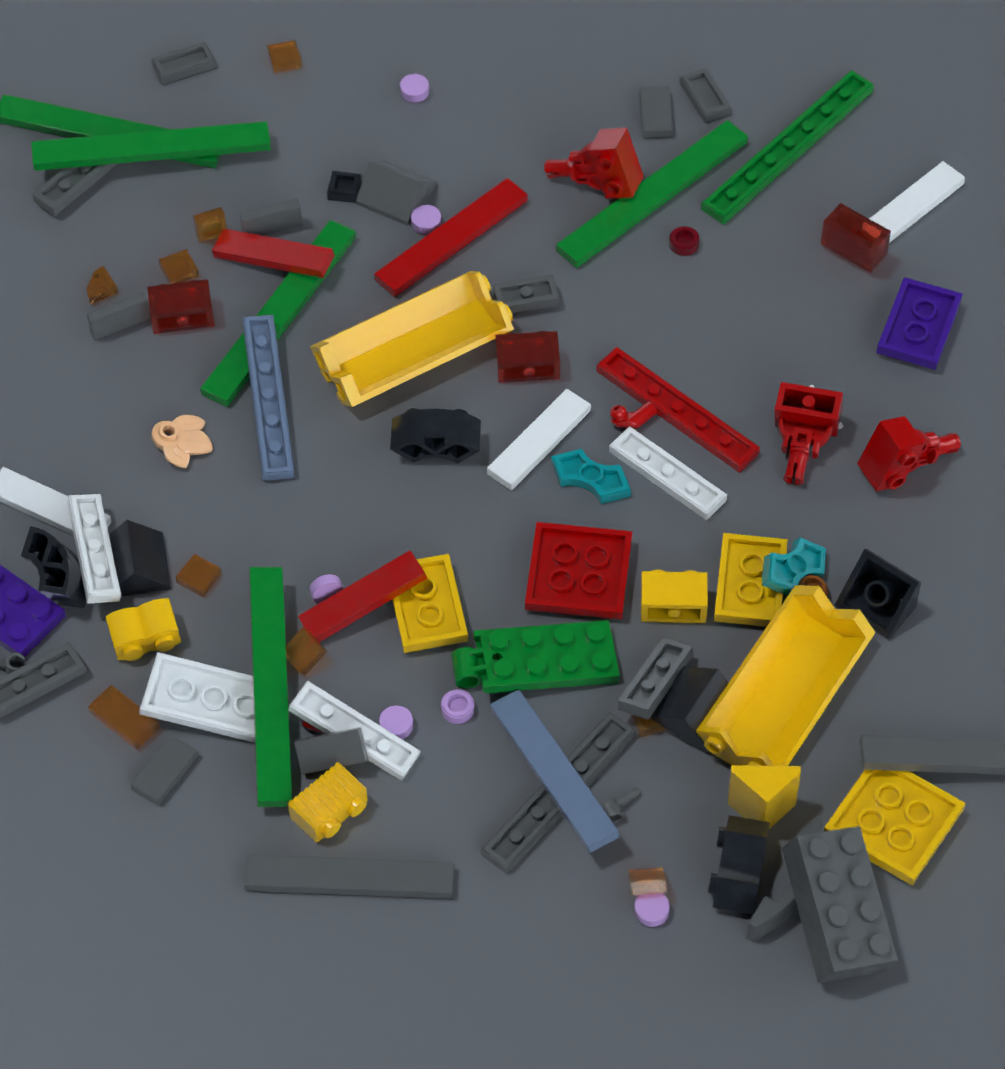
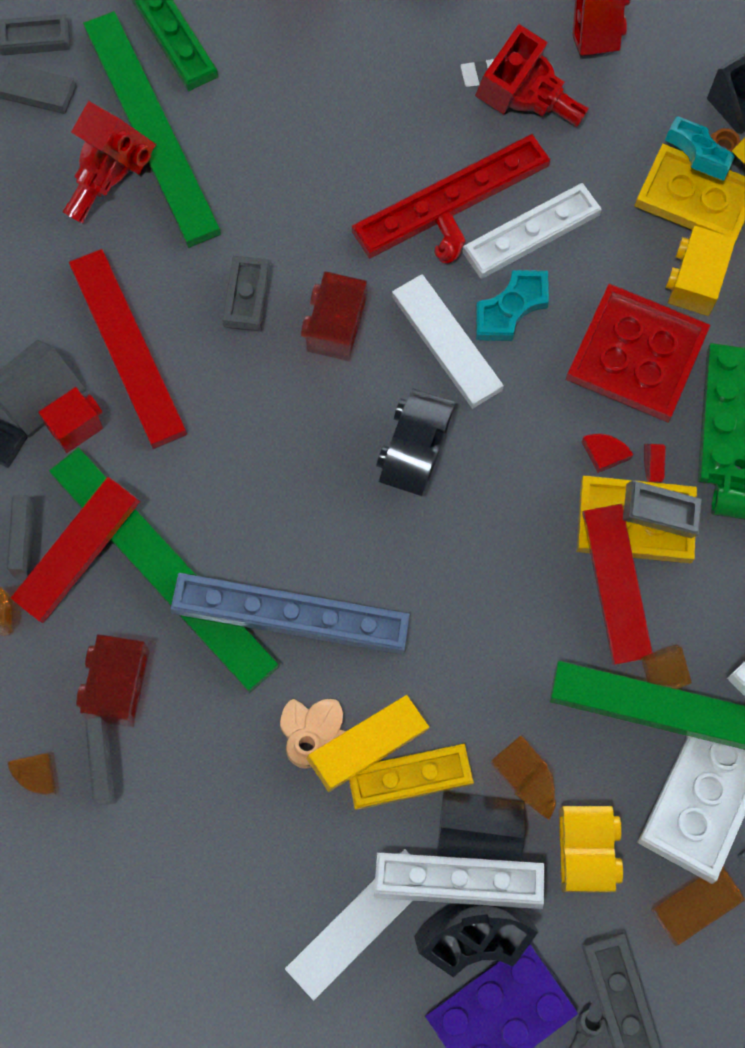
camera: 75 degrees left, 15 degrees up
(167, 509) = (411, 777): none -> yellow tile
(178, 267) = (45, 669): clear orange tile -> none
(180, 588) = (538, 790): none -> clear orange tile
(182, 469) = (367, 743): none -> yellow tile
(325, 587) = (589, 621): lavender tile -> none
(375, 219) = (72, 419): none -> red brick
(412, 338) = (270, 430): yellow panel -> none
(425, 219) = (90, 366): lavender tile -> none
(432, 604) = (662, 509): none -> dark grey tile
(480, 571) = (606, 451): none -> red tile
(482, 600) = (654, 462): none -> red tile
(684, 241) = (228, 118): dark red tile -> none

